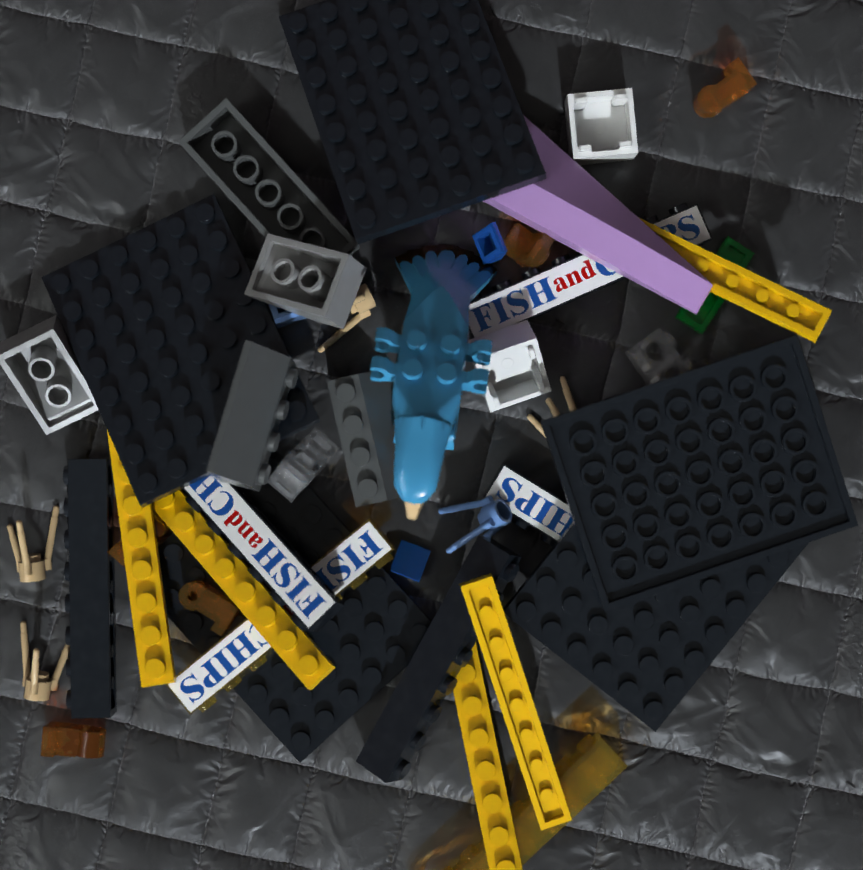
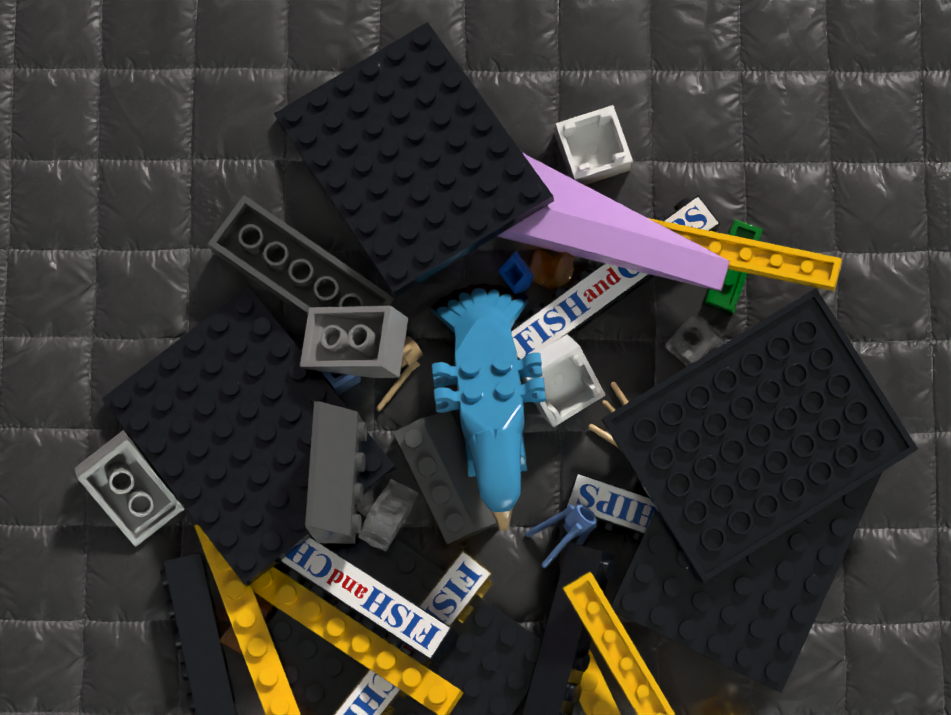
camera: 10 degrees left, 10 degrees down
(31, 566) = (146, 674): tan plant -> none
(211, 603) = (318, 663): clear orange leg -> none
(410, 560) = (509, 587): blue slope -> none
(716, 98) = (692, 98): clear orange leg -> none

